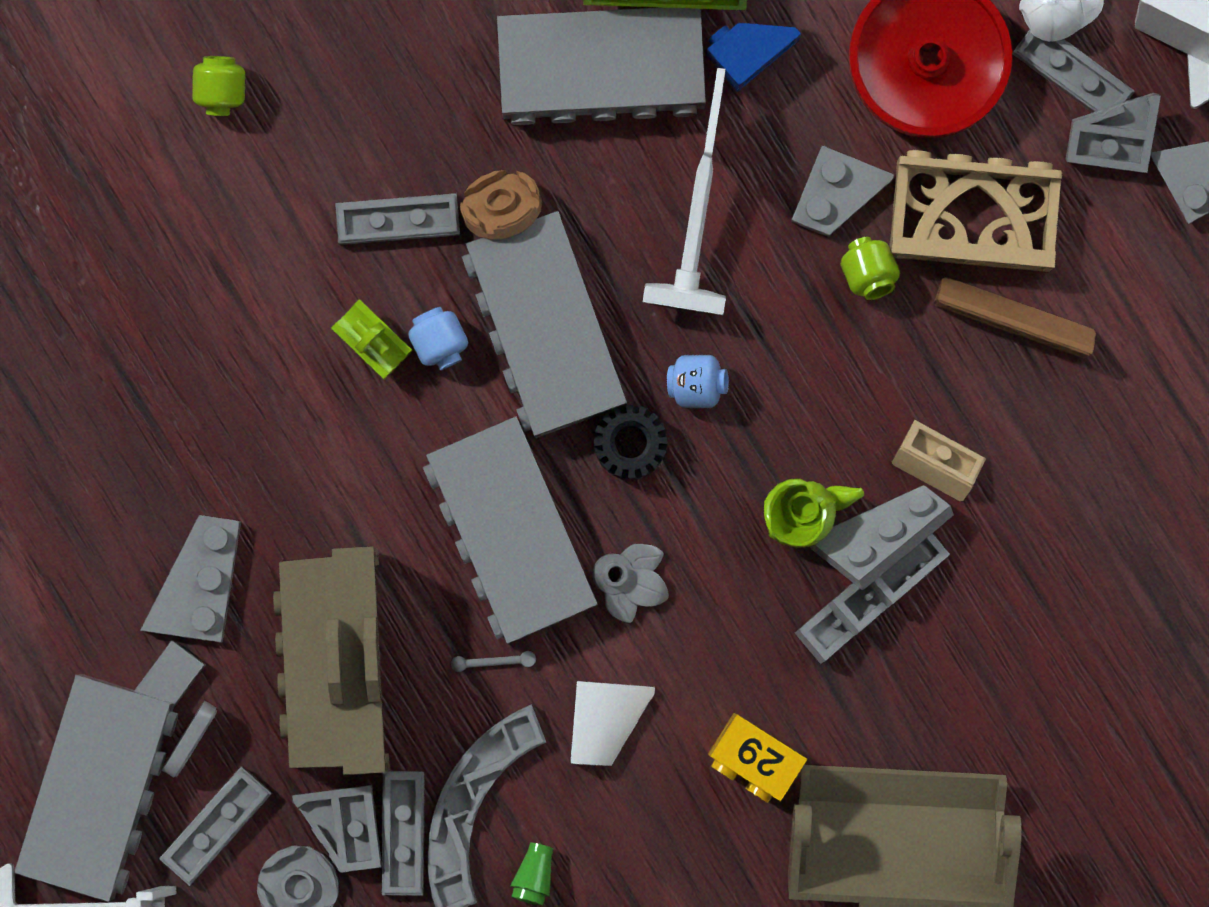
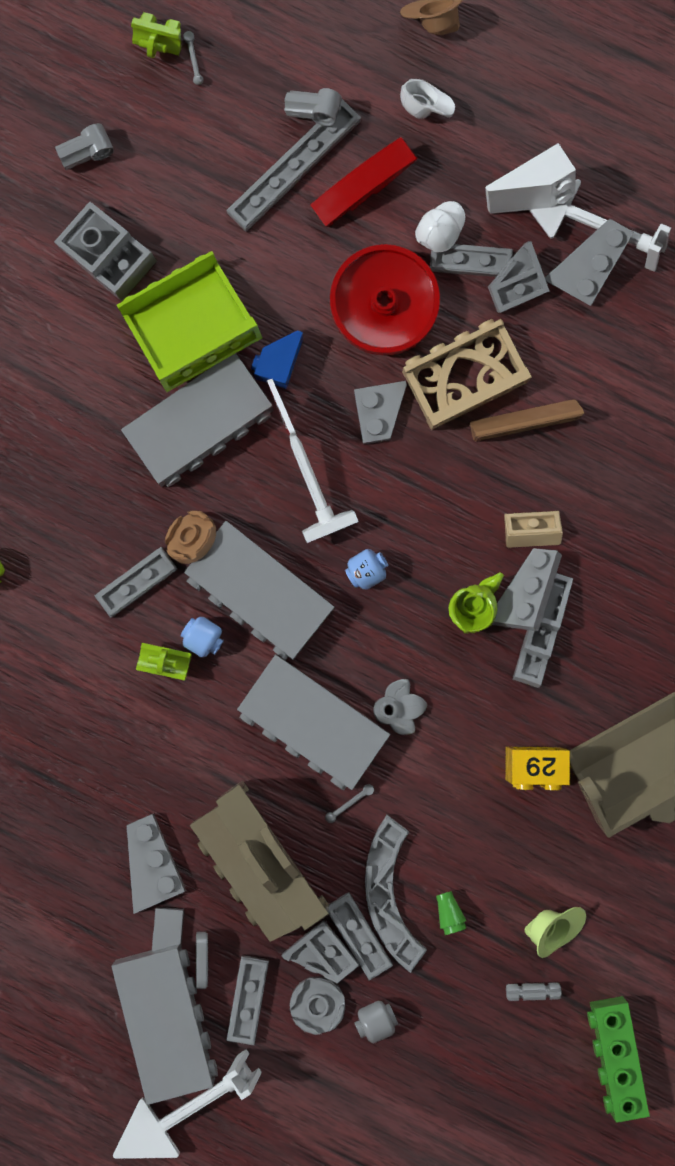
camera: 30 degrees left, 0 degrees up
(605, 719) = (435, 797): white slope -> none
(630, 417) = (357, 612): black tyre -> none
(870, 268) = (425, 442): lime head -> none

